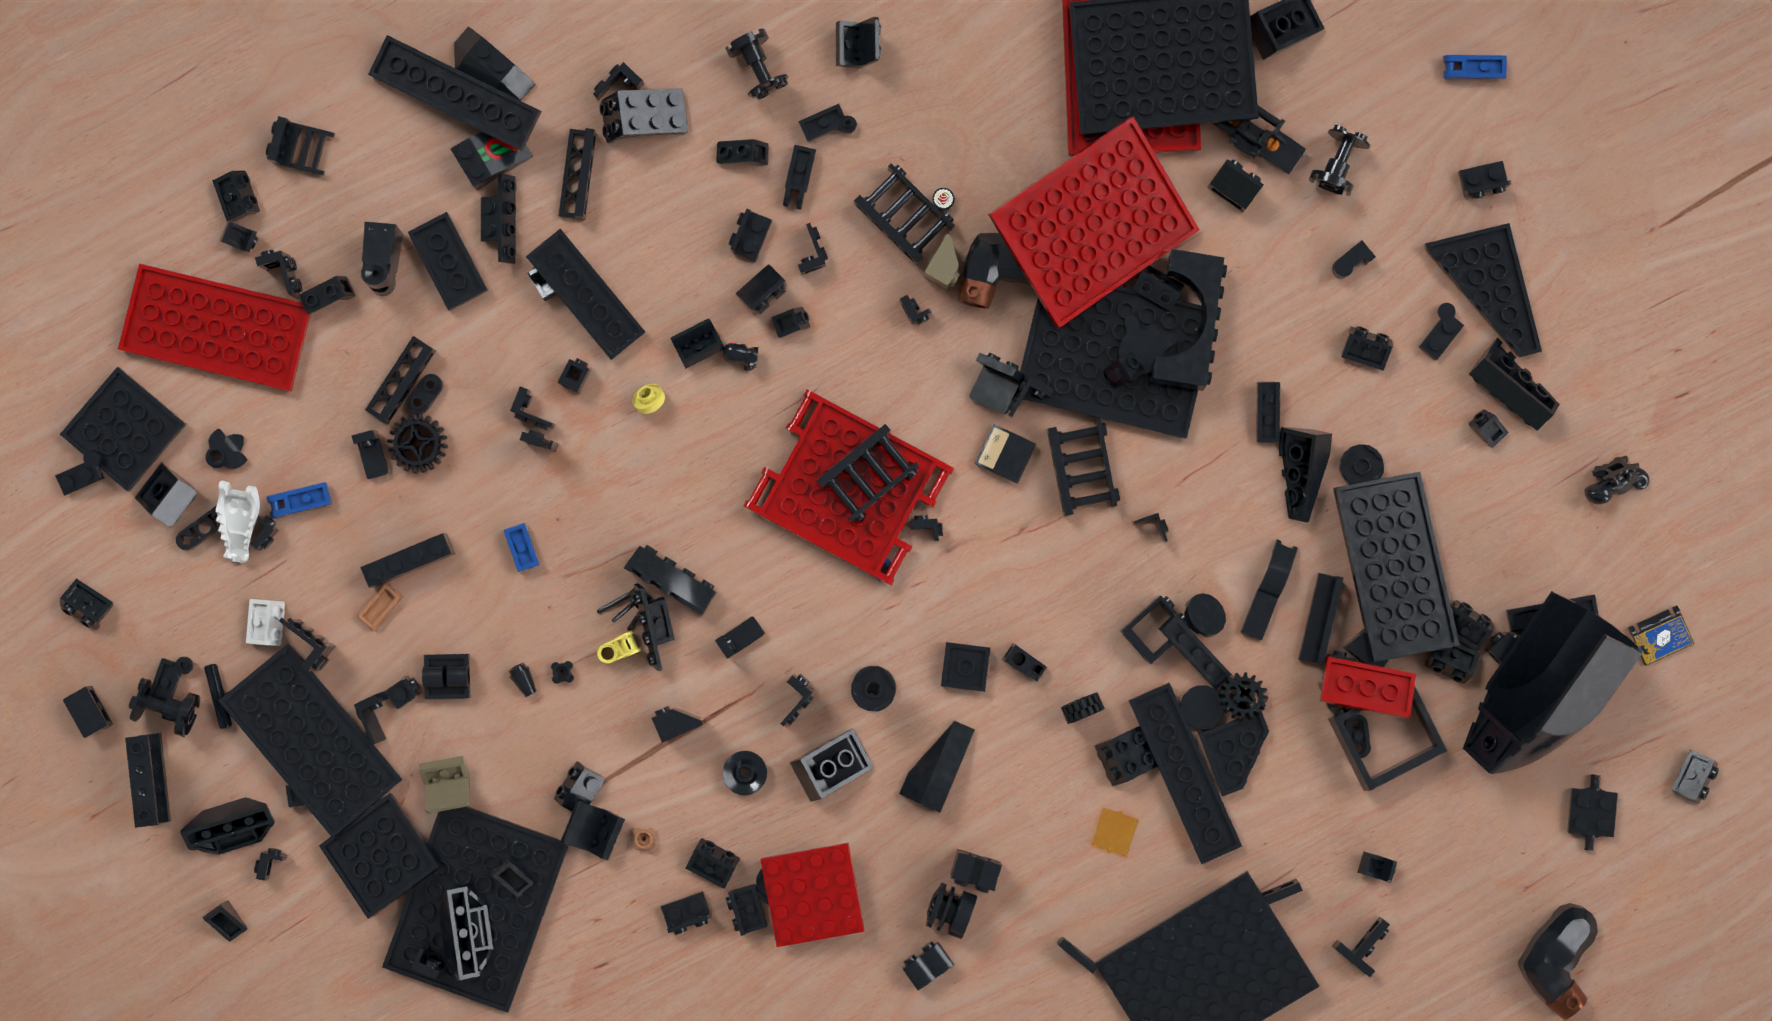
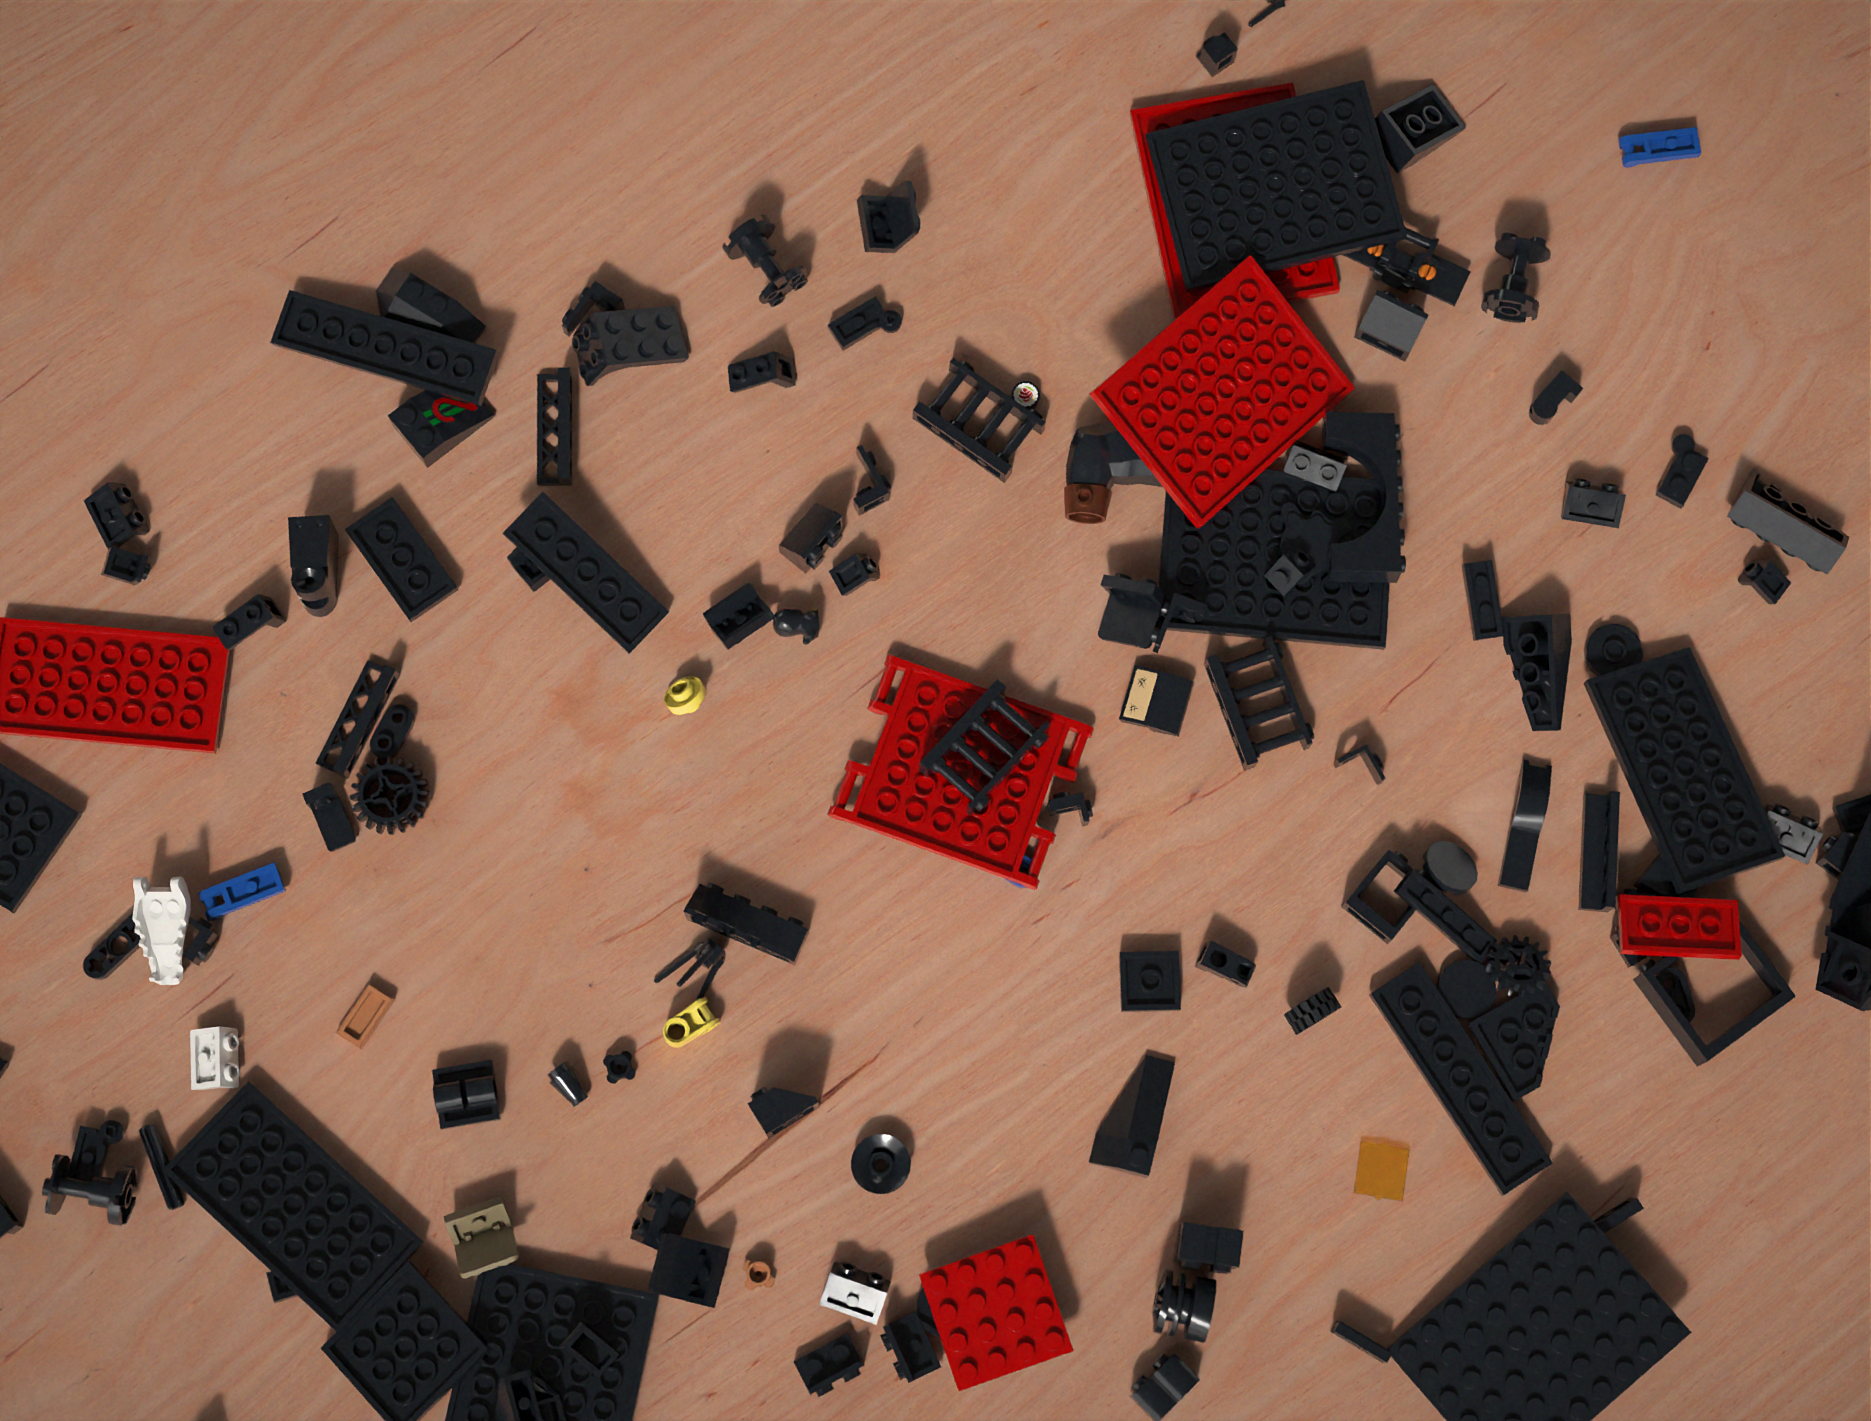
camera: 15 degrees left, 10 degrees down
(148, 780) = (78, 1290): black fence -> none
(166, 495) = (64, 910): slope -> none
(228, 826) = (195, 1340): black wedge -> none
(229, 449) = (140, 838): black plate -> none
(264, 864) = (248, 1388): black bracket -> none
(272, 260) = (178, 585): black bracket -> none
(284, 144) = (172, 441): black plate -> none
(318, 657) = (291, 1090): black plate -> none
(366, 714) = (362, 1158): black bracket -> none
(403, 691) = (410, 1124): black bracket -> none
(407, 560) = (395, 948): black brick -> none
(499, 218) = (461, 497): black bracket -> none
(521, 547) = (544, 910): blue plate -> none
(523, 400) = (521, 721): black bracket -> none
(537, 439) = (544, 766): black plate -> none
(566, 377) = (580, 669): black brick -> none
(655, 622) = (734, 981): black bracket -> none
(740, 637) = (848, 986): black bracket -> none
(750, 234) = (786, 474): black bracket -> none
(799, 174) = (838, 389): black hinge -> none
(800, 684) = (939, 1035): black bracket -> none
(831, 765) = (994, 1137): black slope -> none
(873, 688) = (1035, 1022): black piece -> none
(911, 307) = (1005, 536): black bracket -> none
(944, 265) = (1040, 476): dark tan slope -> none
(1125, 756) = (1378, 1068): black bracket -> none
(1364, 946) = (1737, 1274): black bracket -> none
(1377, 867) = (1734, 1164): black bracket -> none
(1454, 662) = (1780, 883): black bracket -> none
(1483, 179) = (1698, 279): black bracket -> none
(1491, 277) = (1730, 395): black wing -> none

